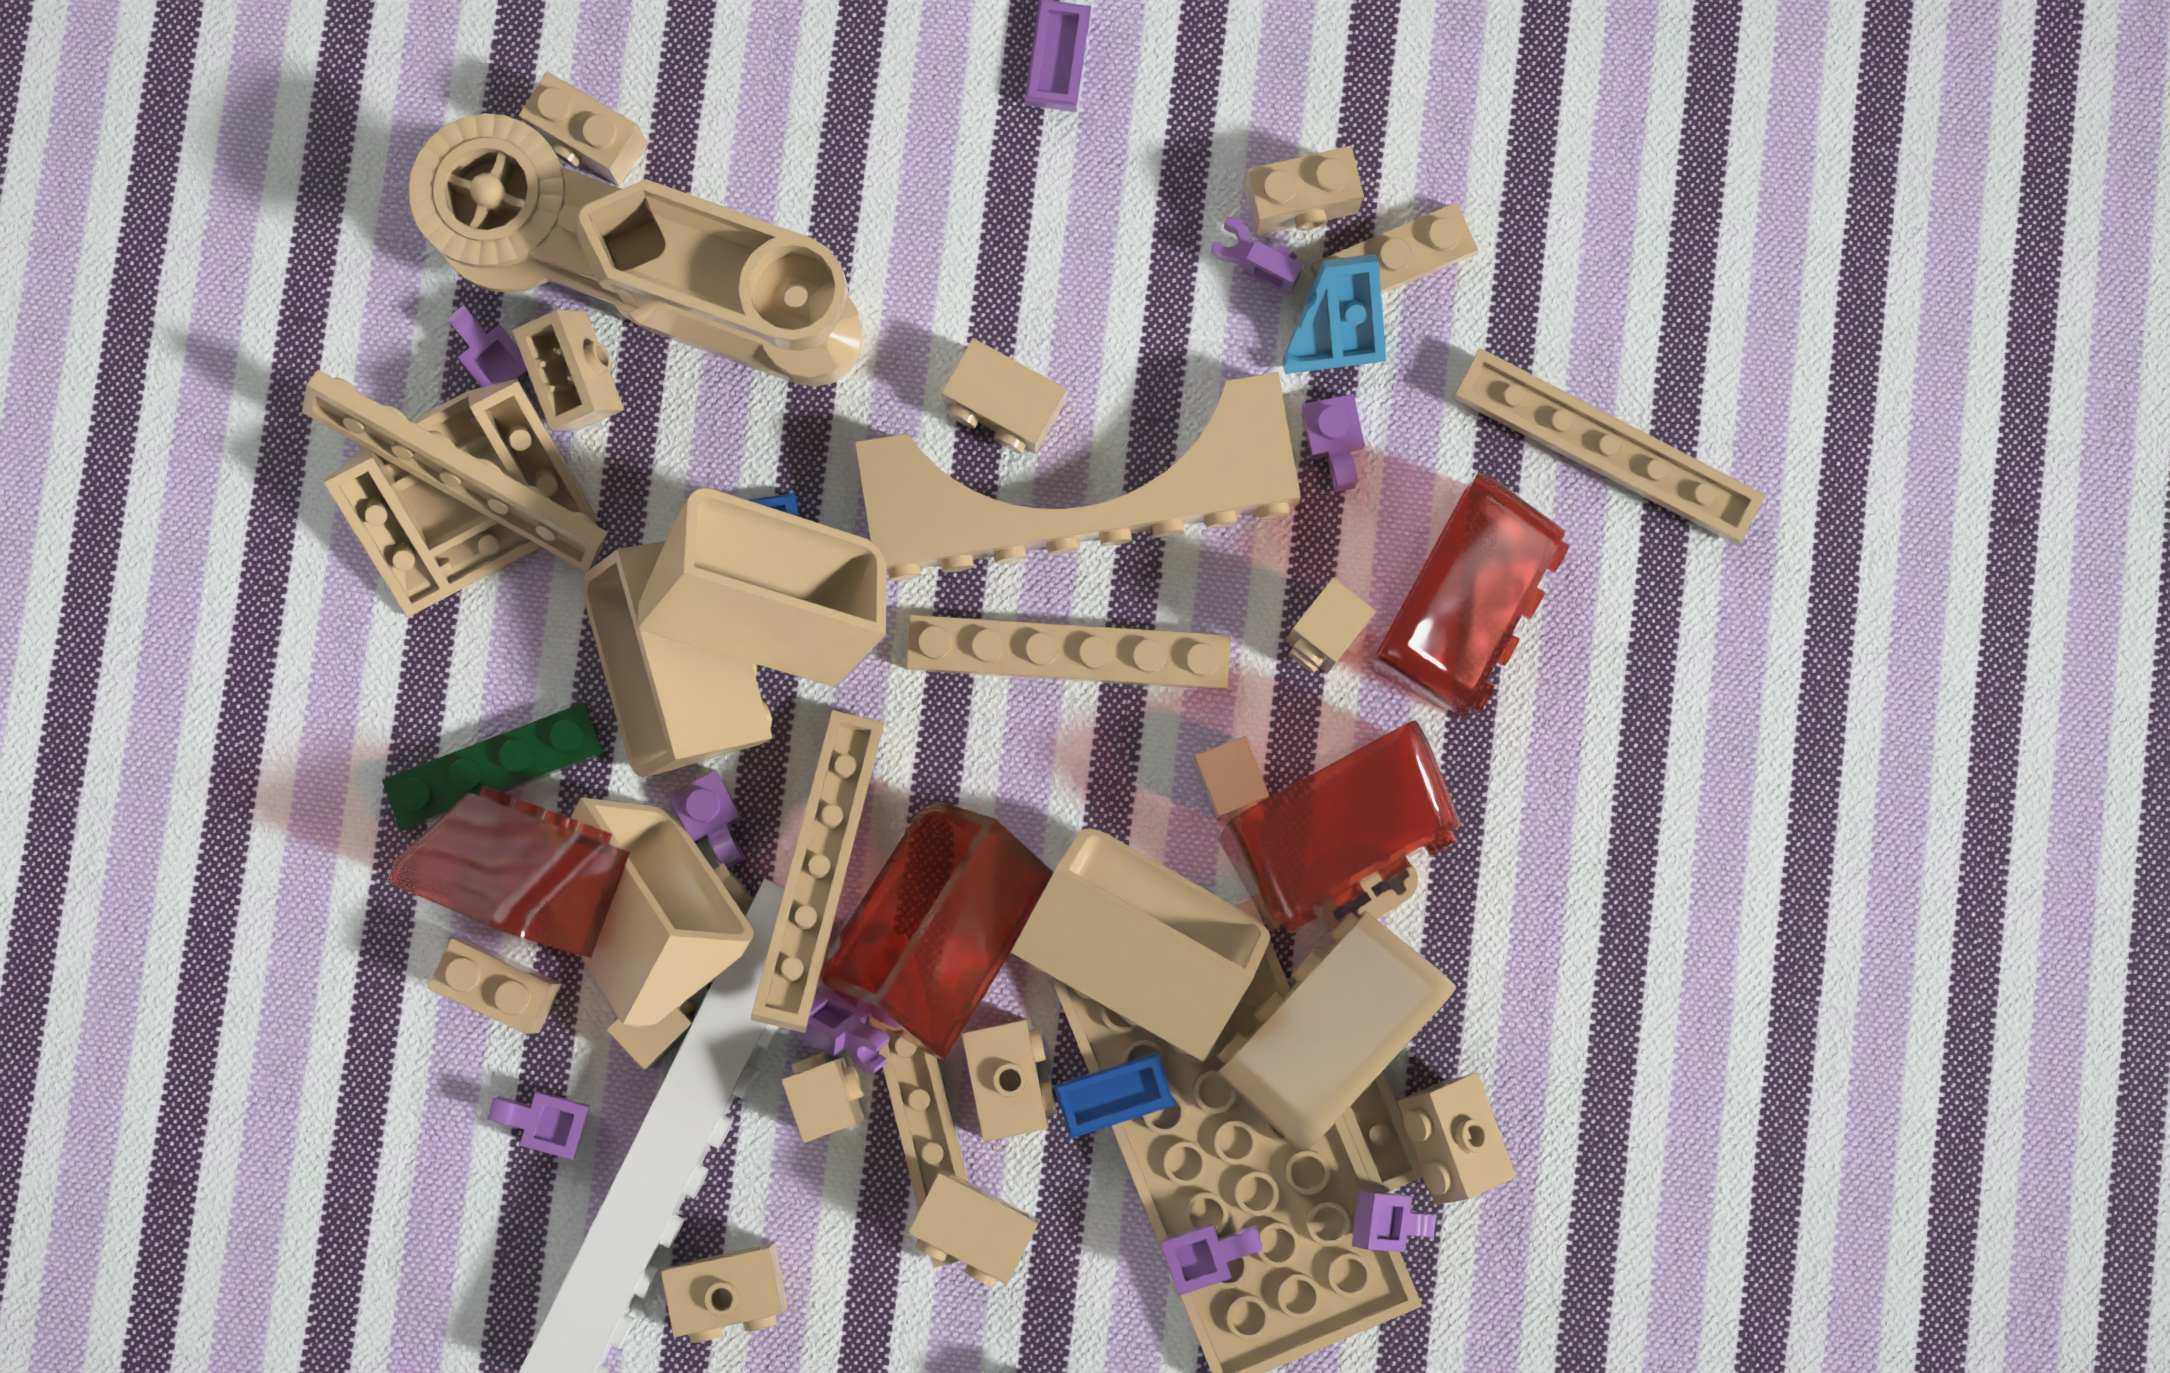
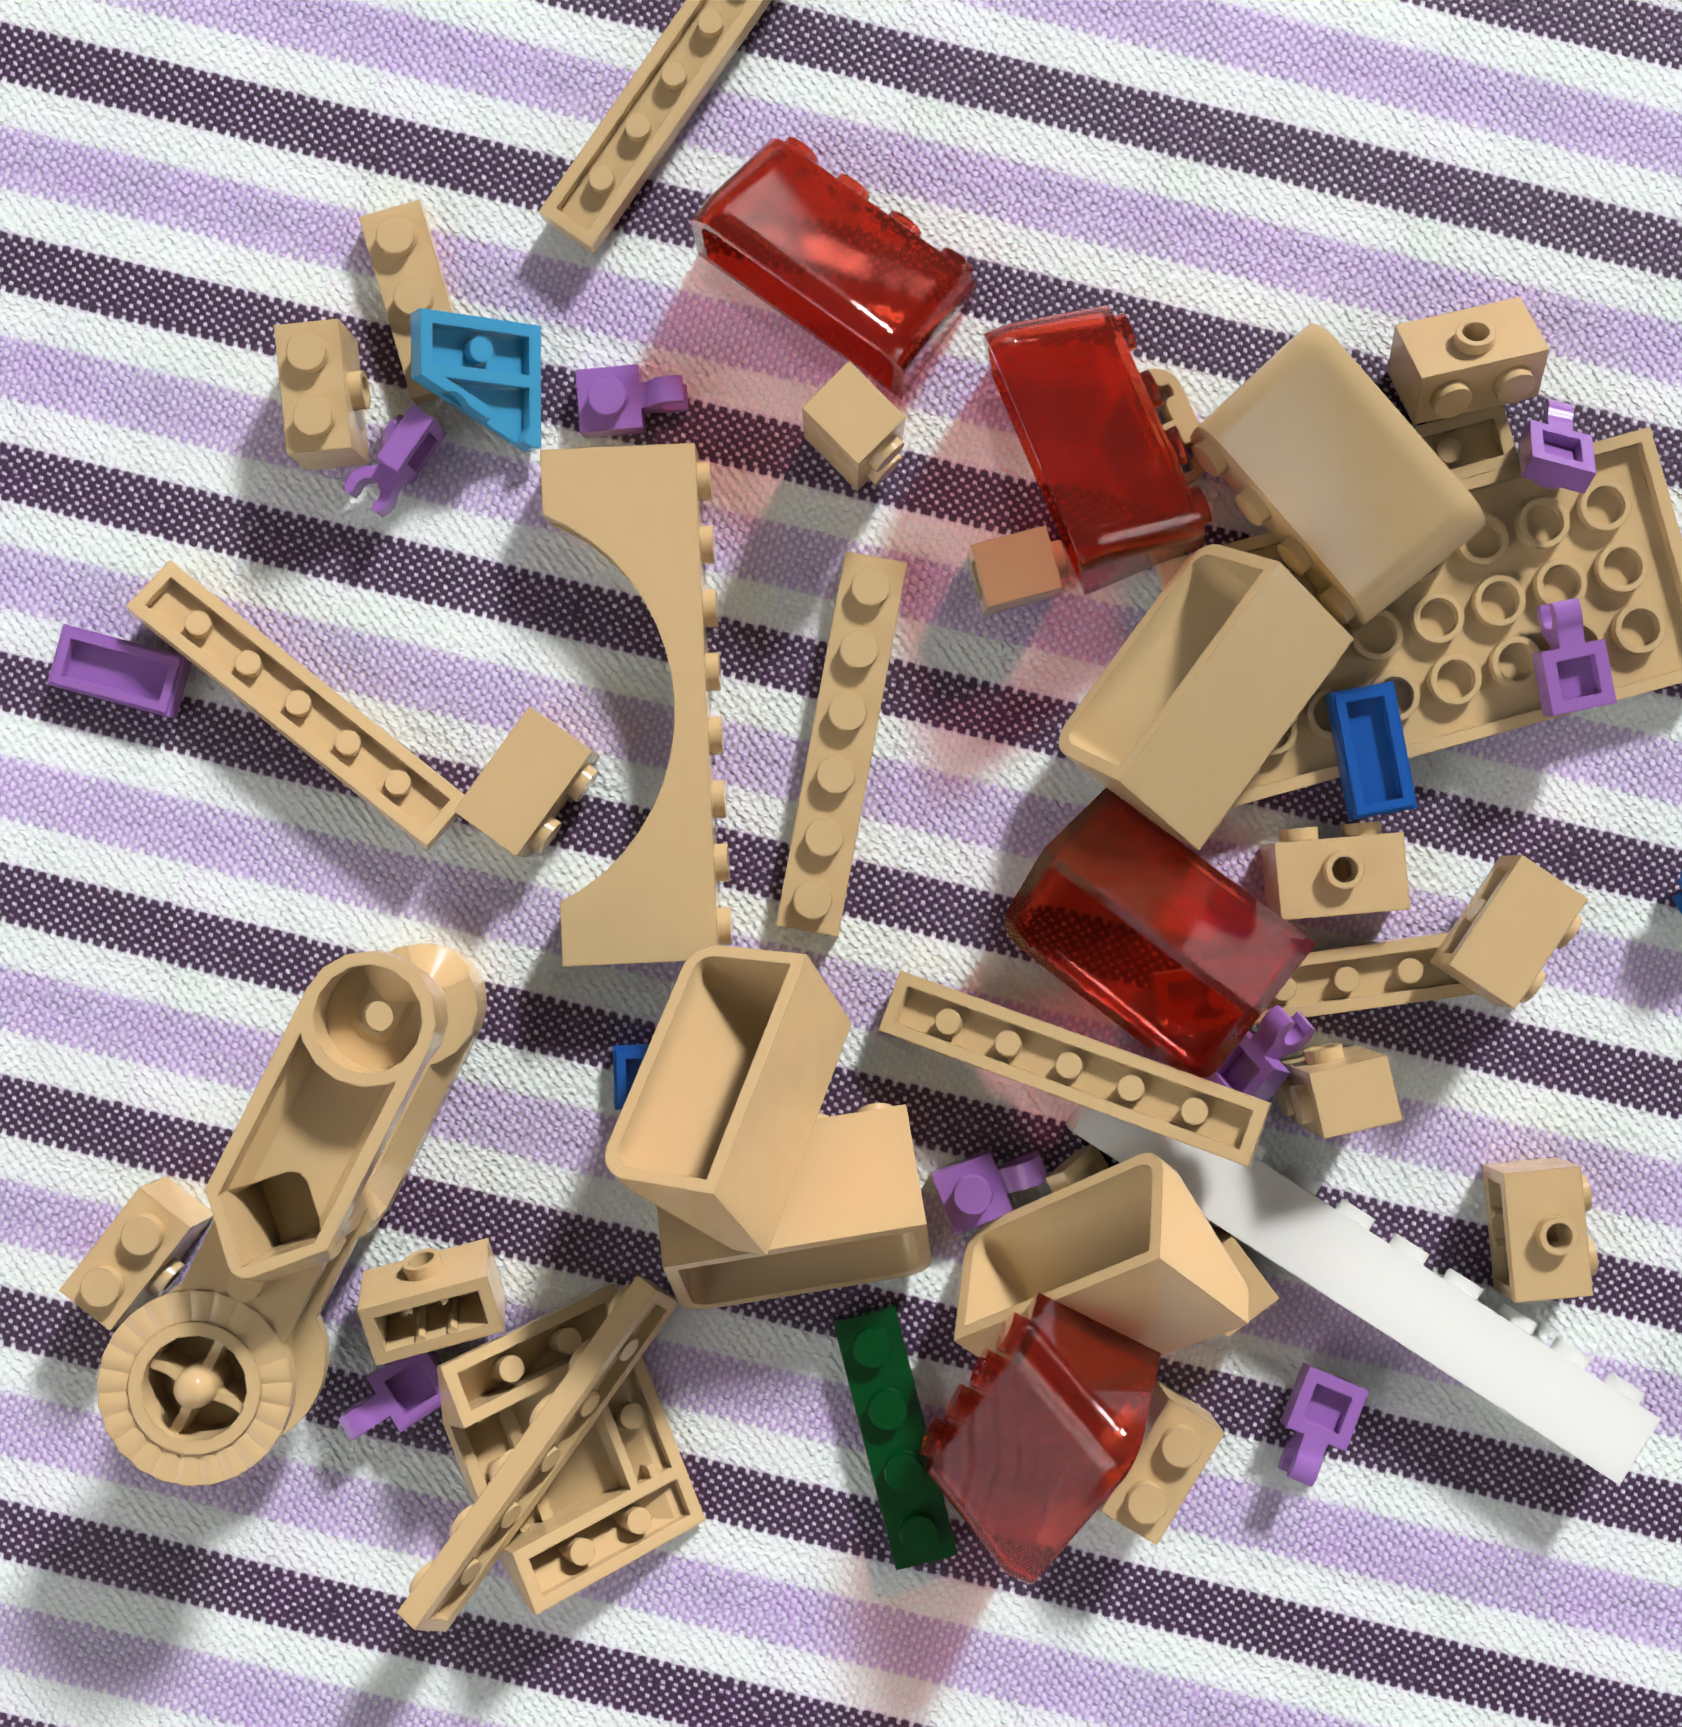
camera: 85 degrees left, 5 degrees up
(1046, 202) = (297, 704): none -> tan plate

